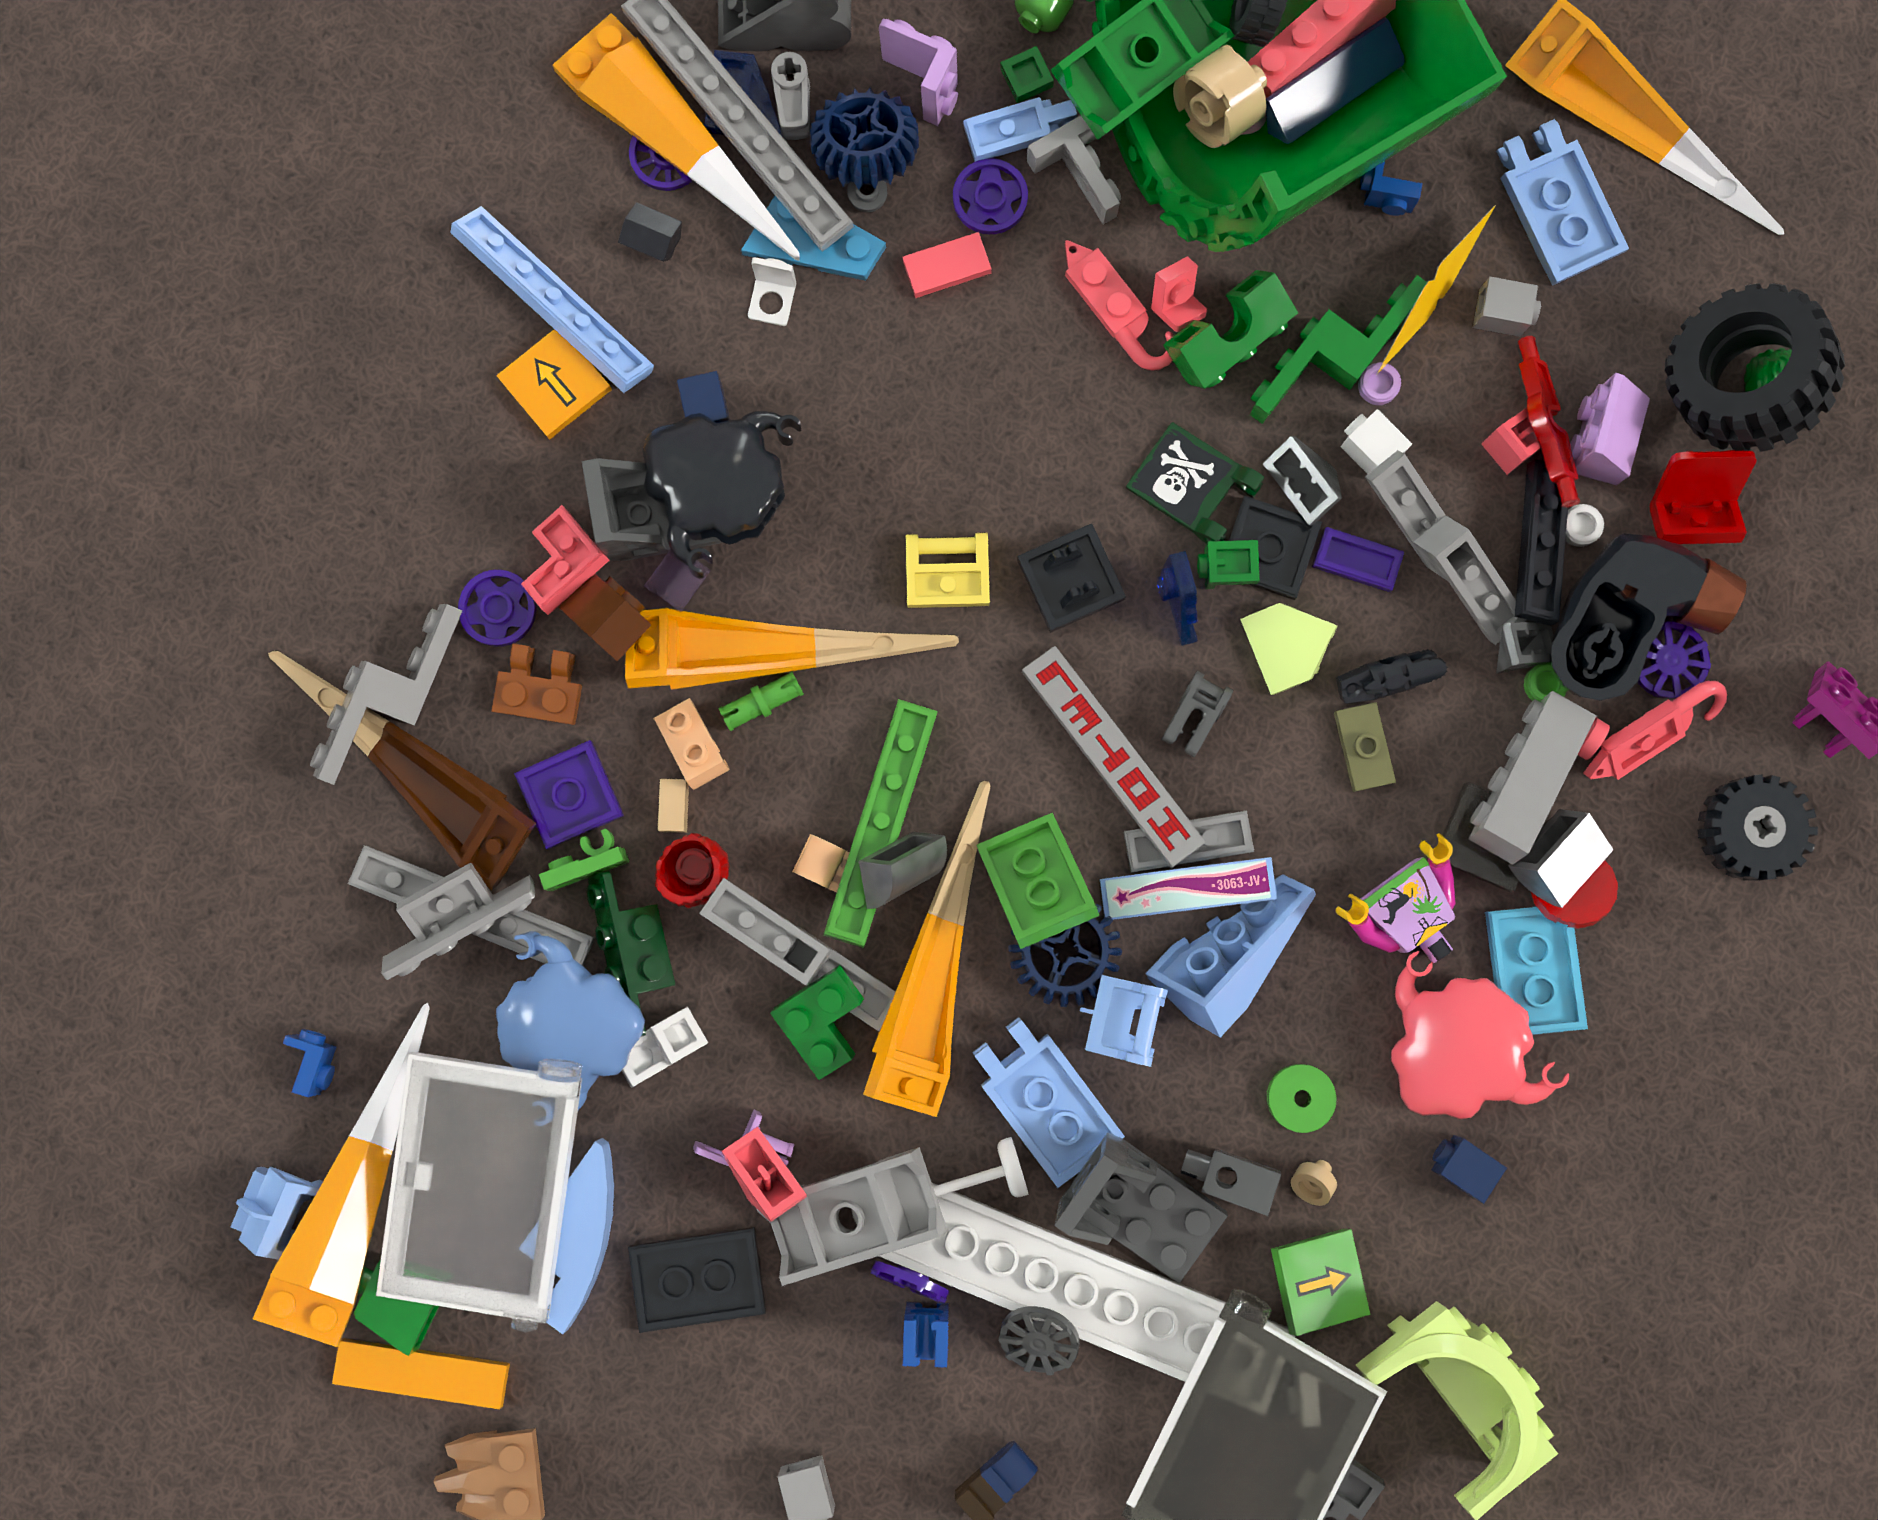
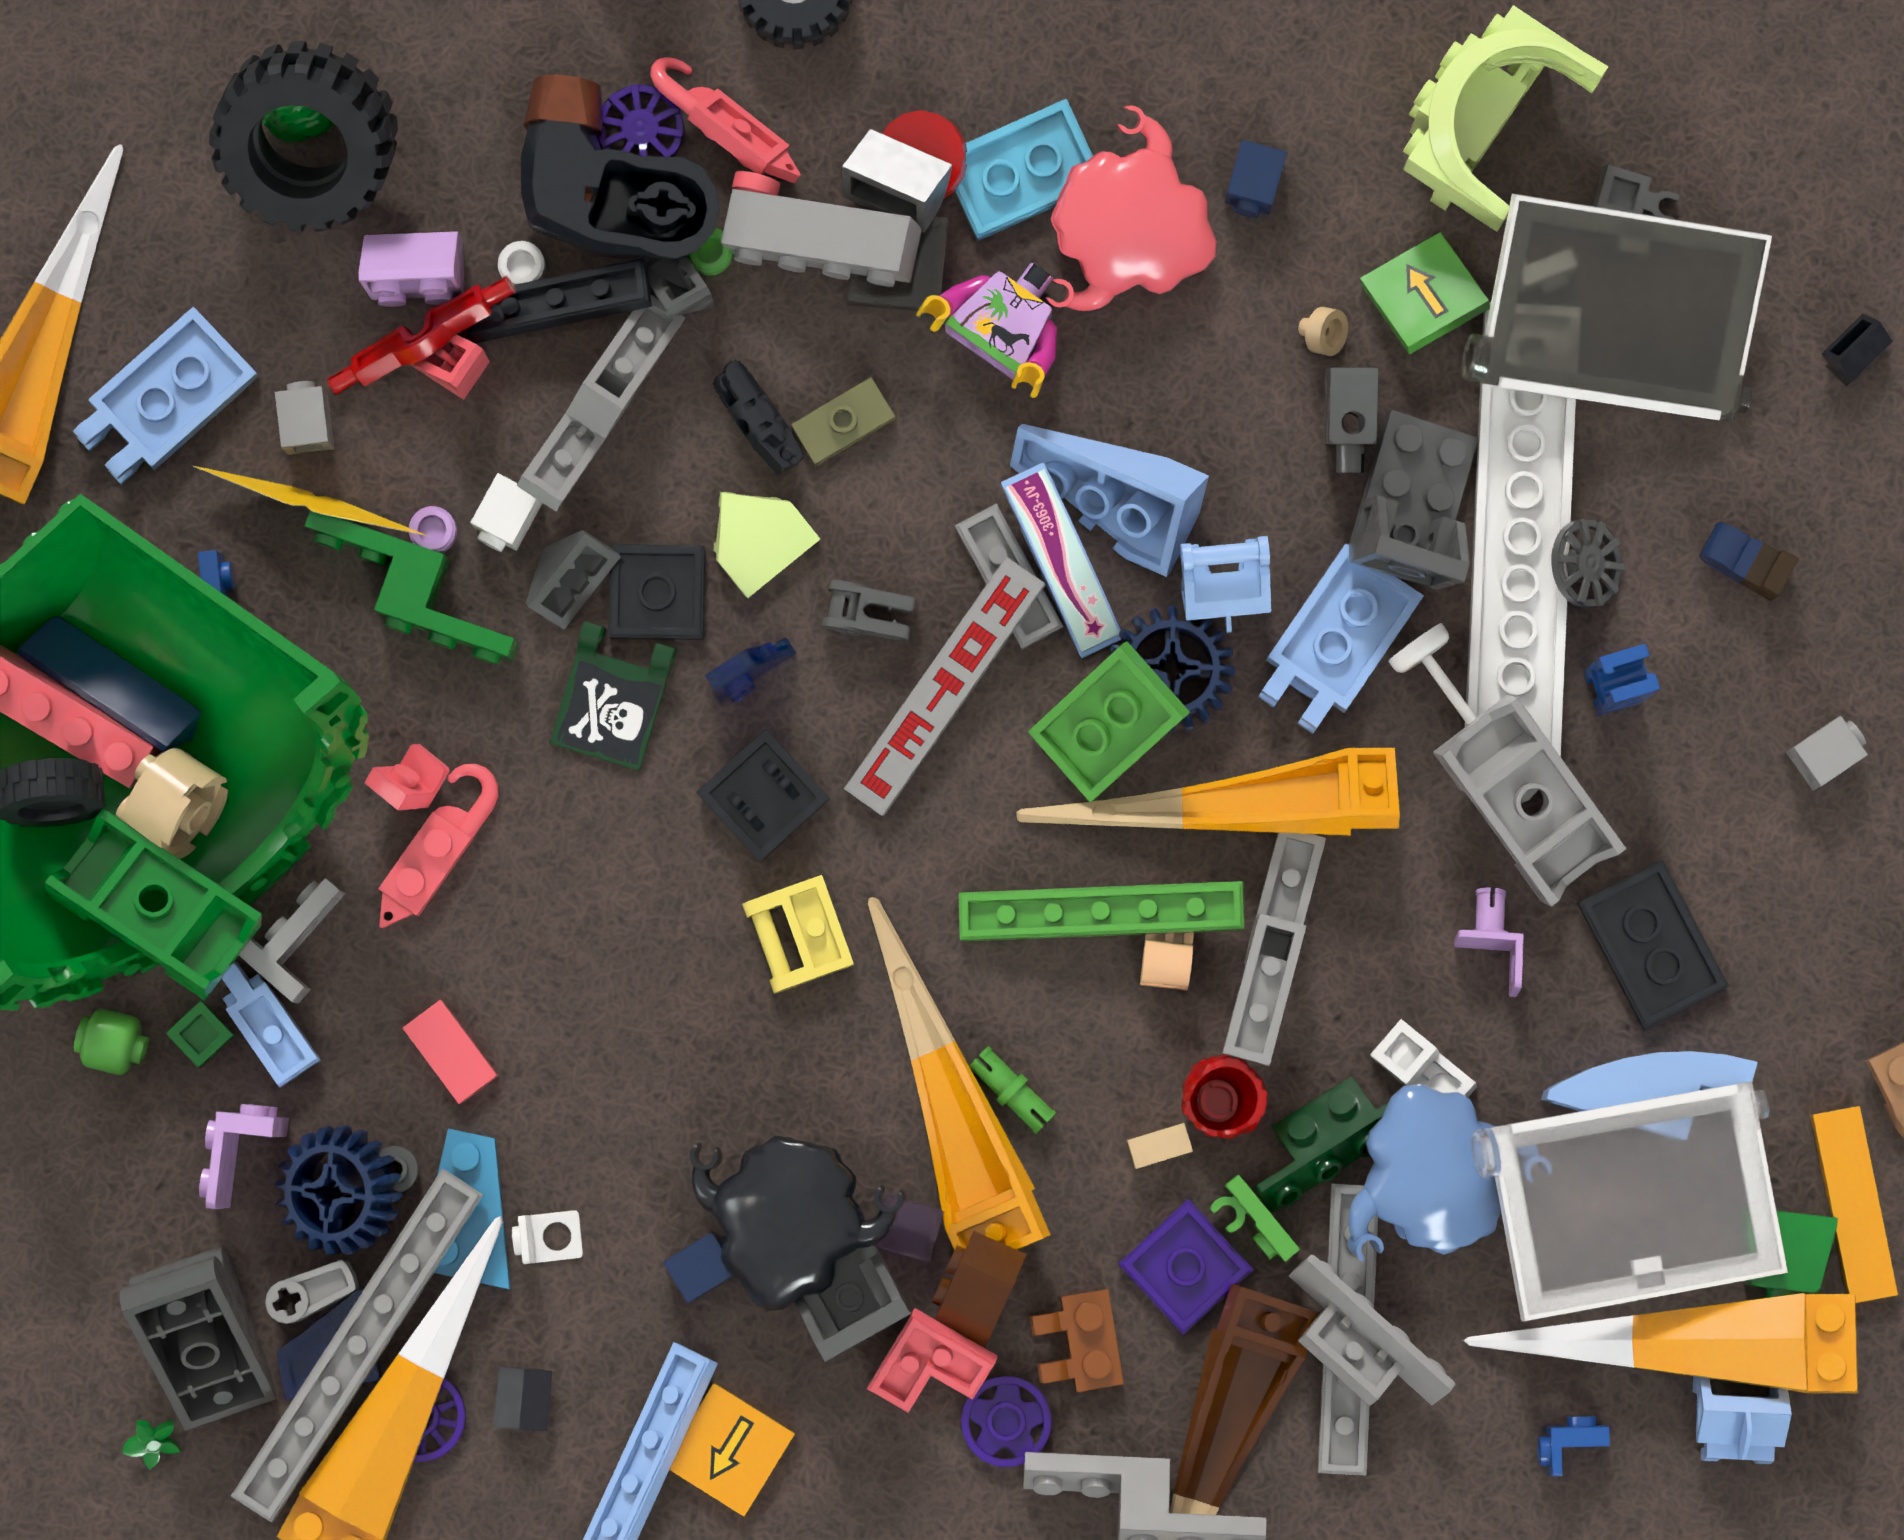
camera: 110 degrees left, 0 degrees up
(691, 744) = (1085, 1149): light nougat plate -> none
(763, 1175) = (1519, 904): coral slope -> none
(809, 1021) = (1338, 916): green plate -> none
(901, 866) = (1143, 870): flat silver brick -> none
(908, 1278) = (1572, 713): dark purple wheel -> none
(990, 196) = (355, 1029): dark purple wheel -> none
(1229, 563) = (693, 628): green bracket -> none
(1259, 313) = (401, 685): green arch -> none
(1320, 1102) = (1247, 351): bright green piece -> none
(1358, 559) = (638, 492): dark purple tile -> none
(1700, 497) = (458, 147): red bracket -> none

